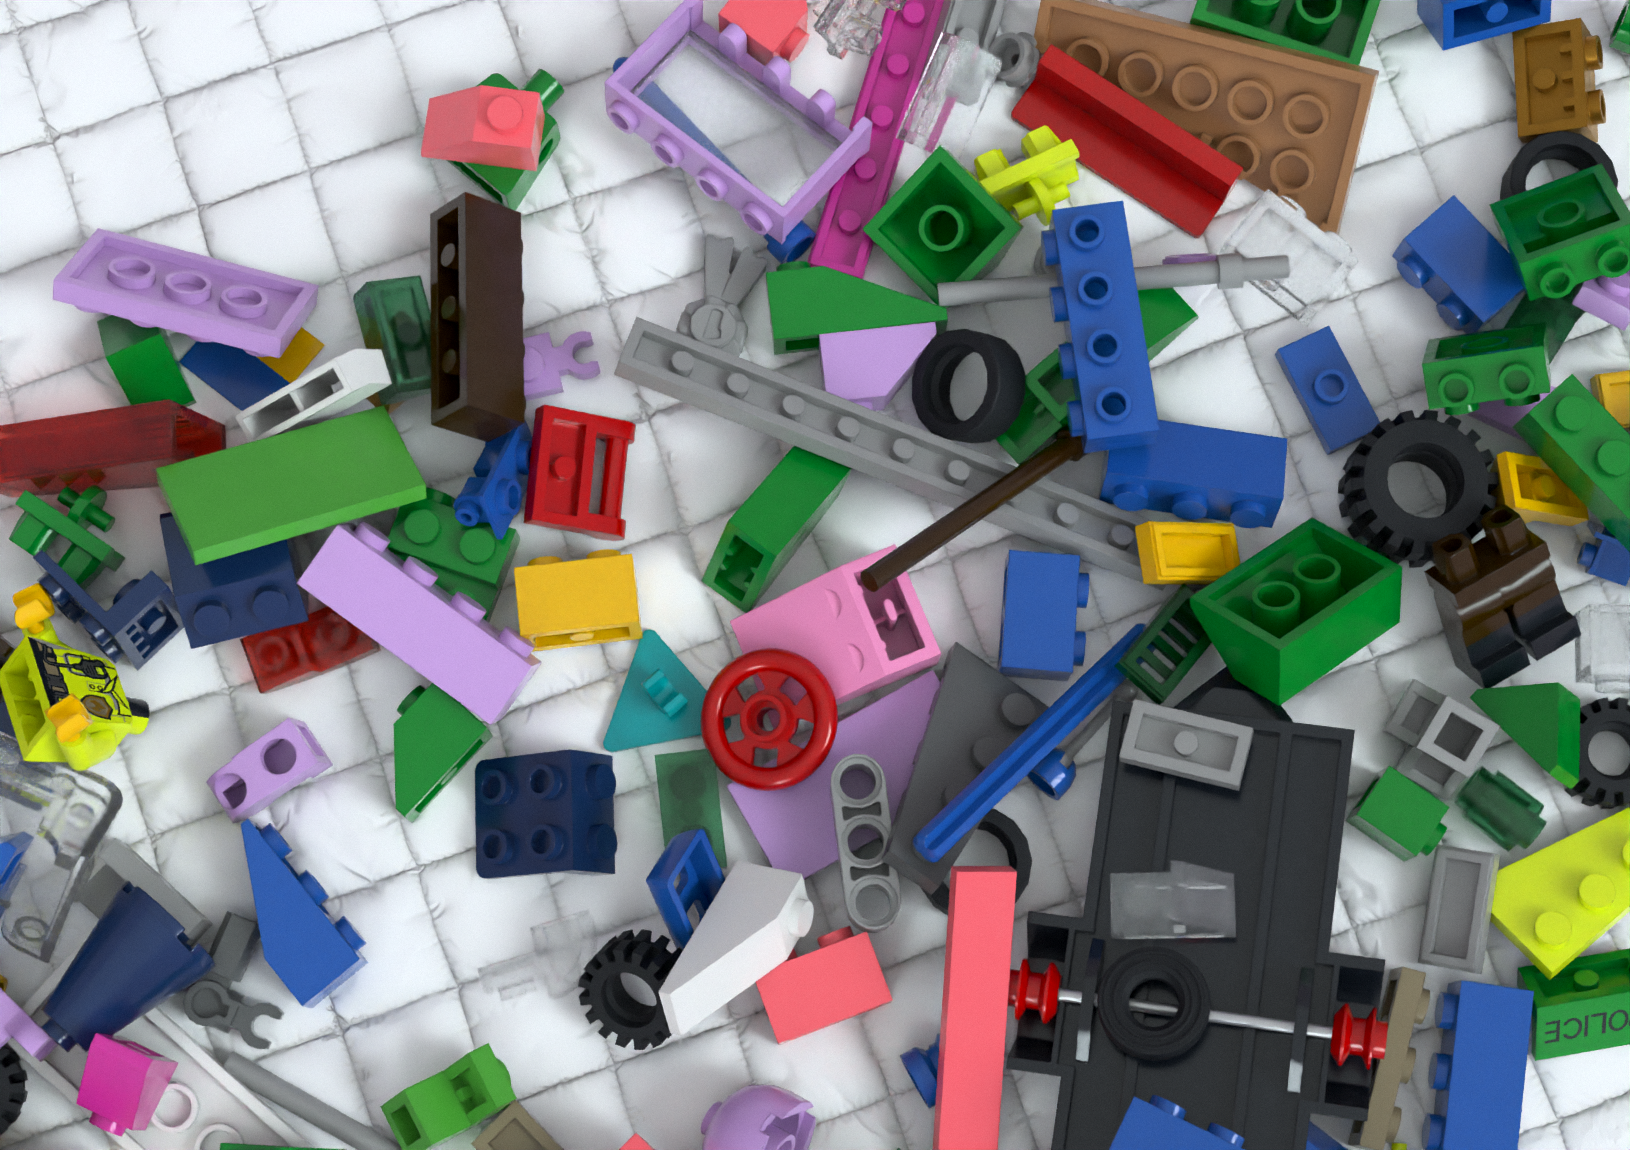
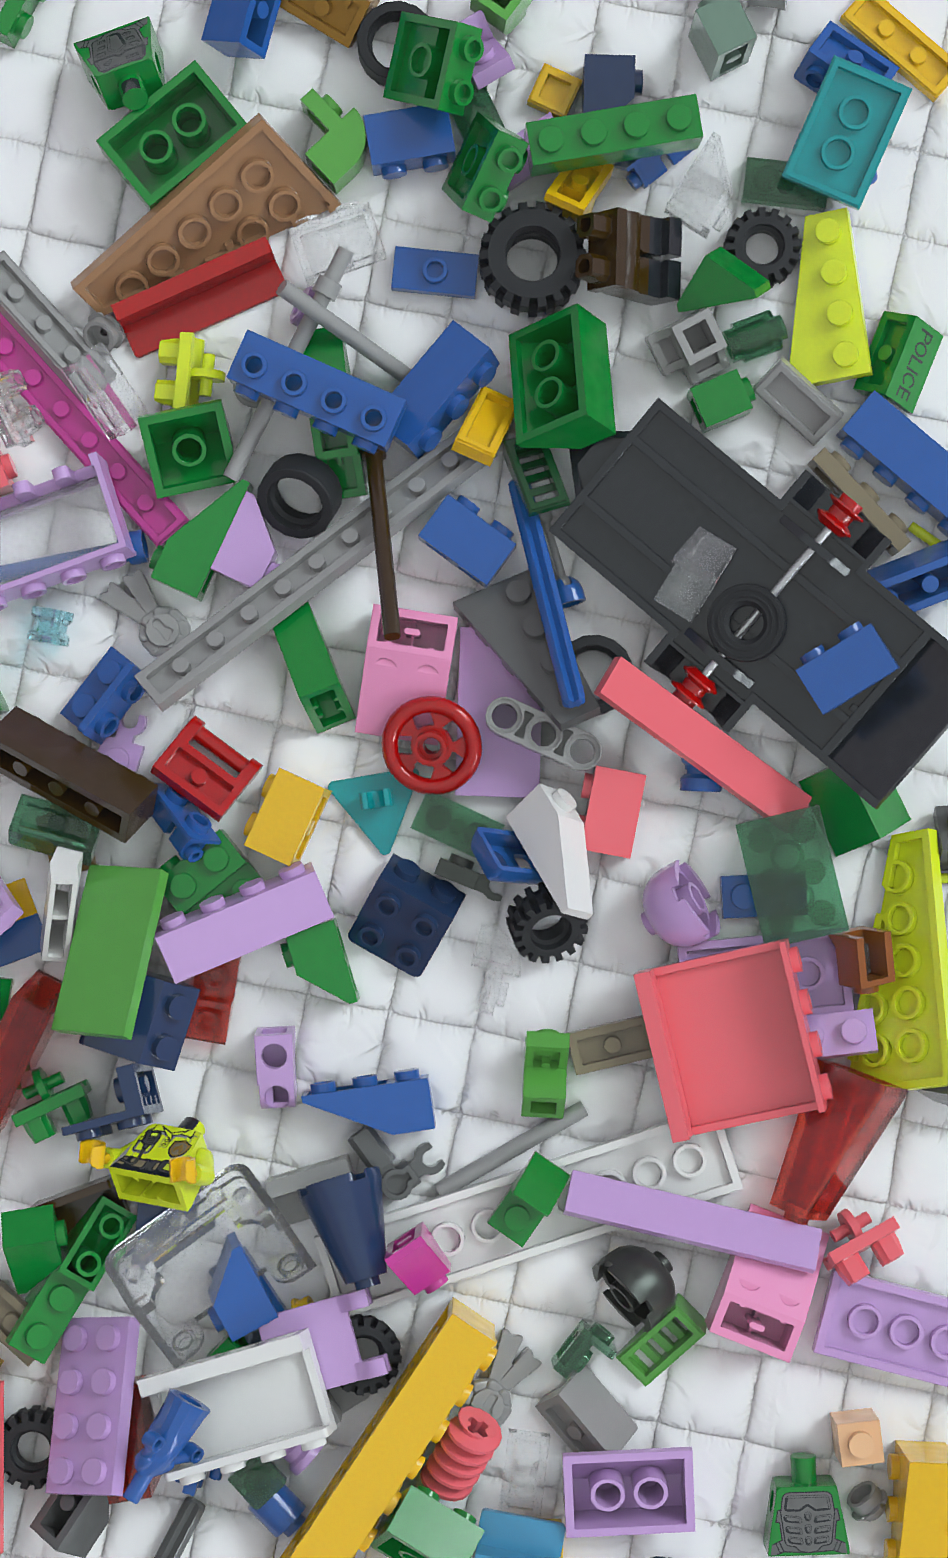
camera: 55 degrees left, 10 degrees up
(591, 307) = (104, 697): none -> blue bracket
(638, 198) = (50, 626): none -> clear light blue wheel
(638, 847) = (460, 871): none -> pearl dark grey plate
(1186, 744) = (605, 504): light grey plate -> none
(1192, 316) = (342, 330): none -> light grey bar
(1396, 197) = (343, 147): none -> bright green brick

